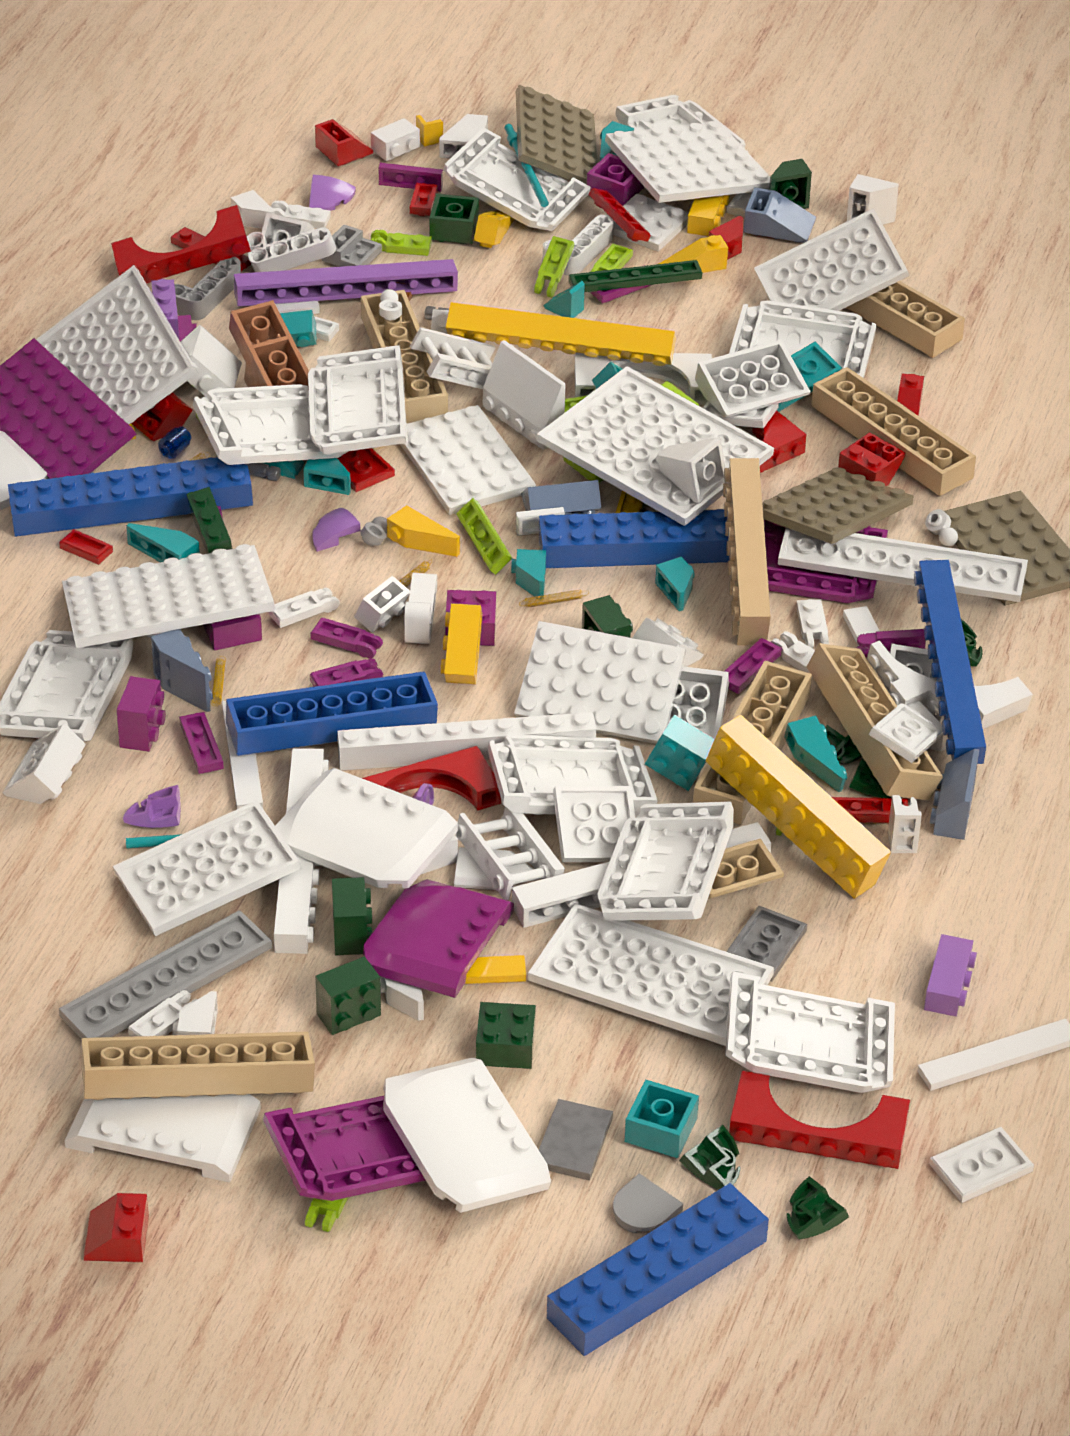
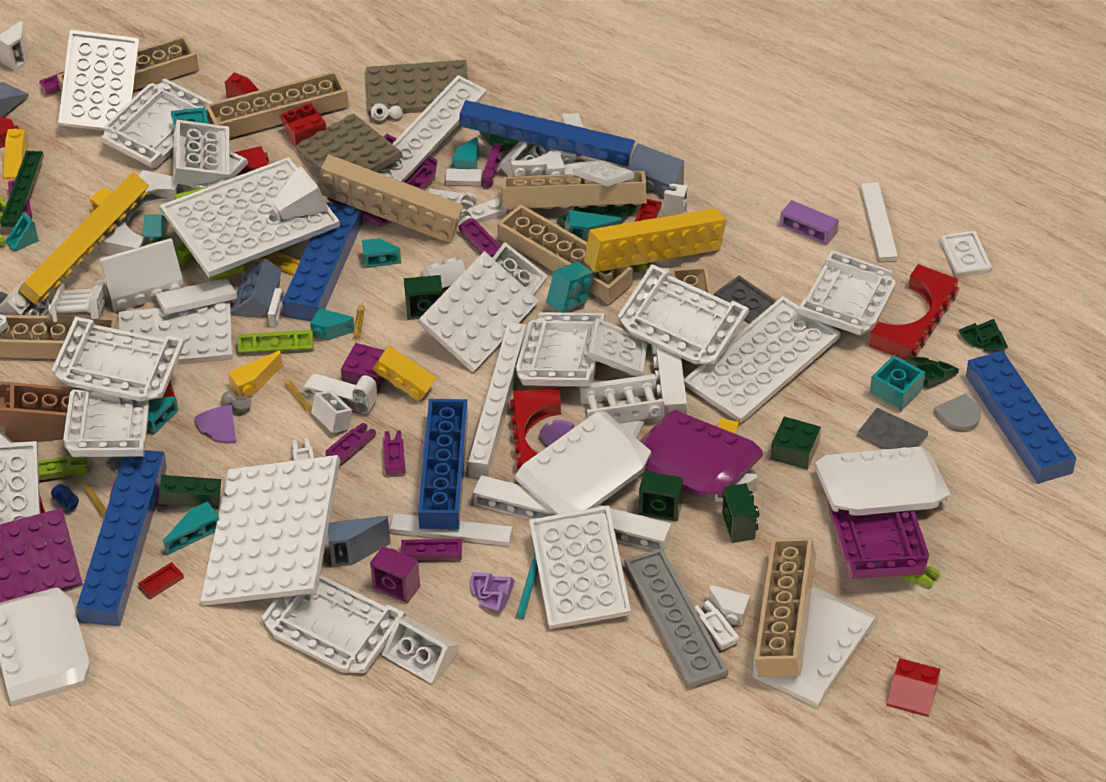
camera: 70 degrees left, 5 degrees up
(526, 453) = (196, 296): none -> white tile
(896, 615) = (467, 155): none -> teal slope

